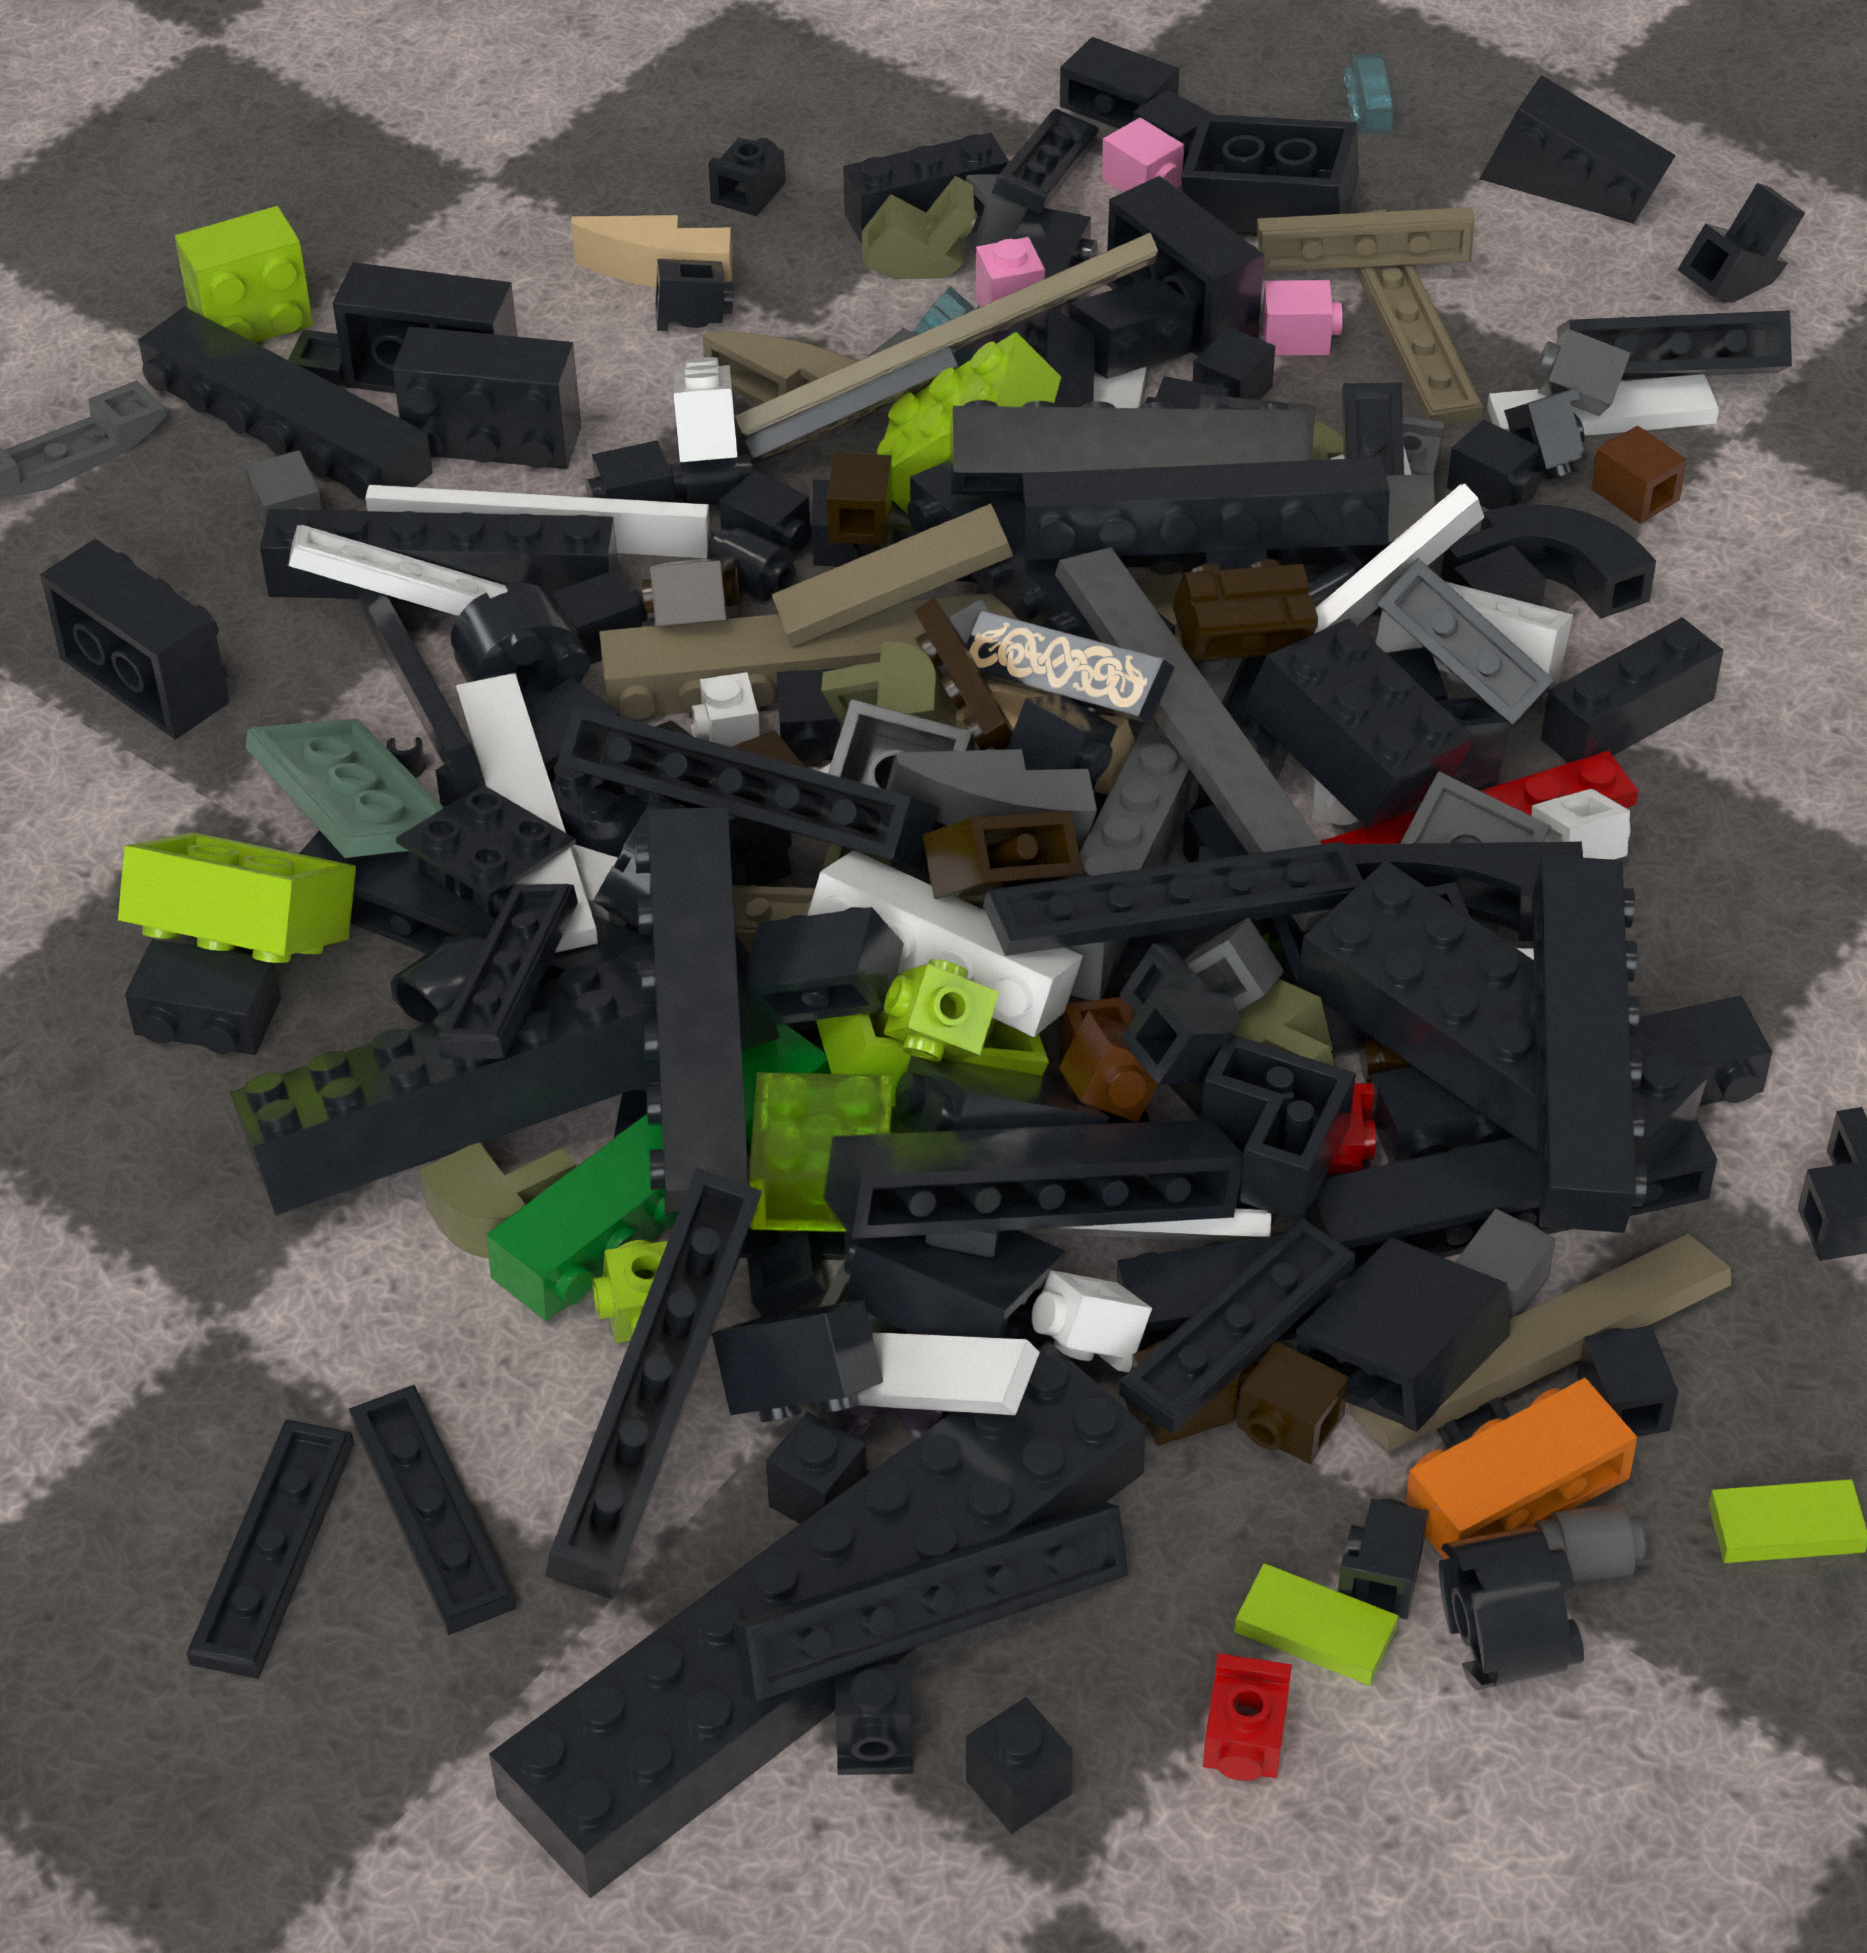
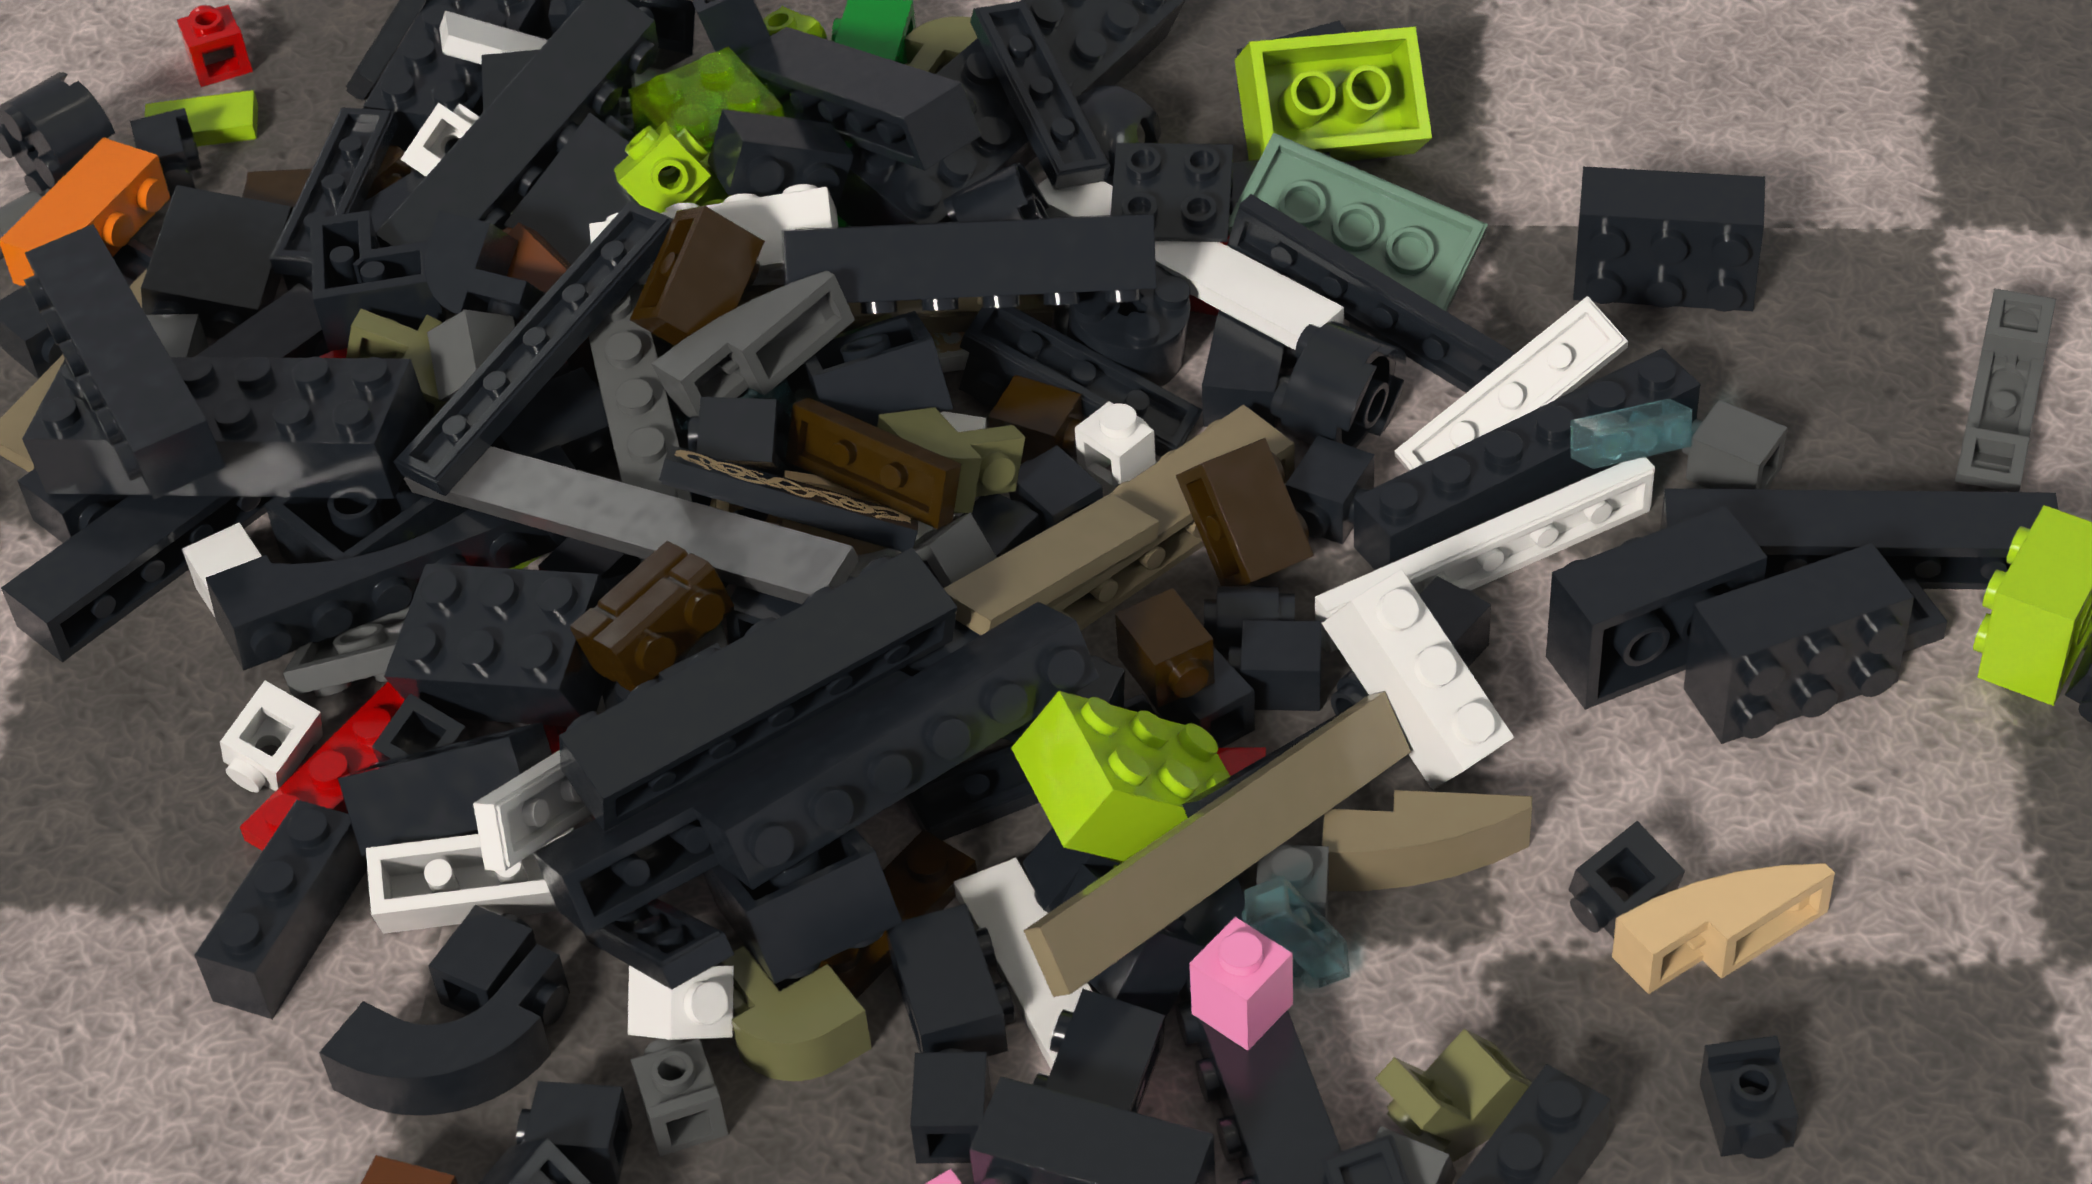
camera: 150 degrees right, 0 degrees up
(365, 490) = (1631, 433): none -> clear light blue piece

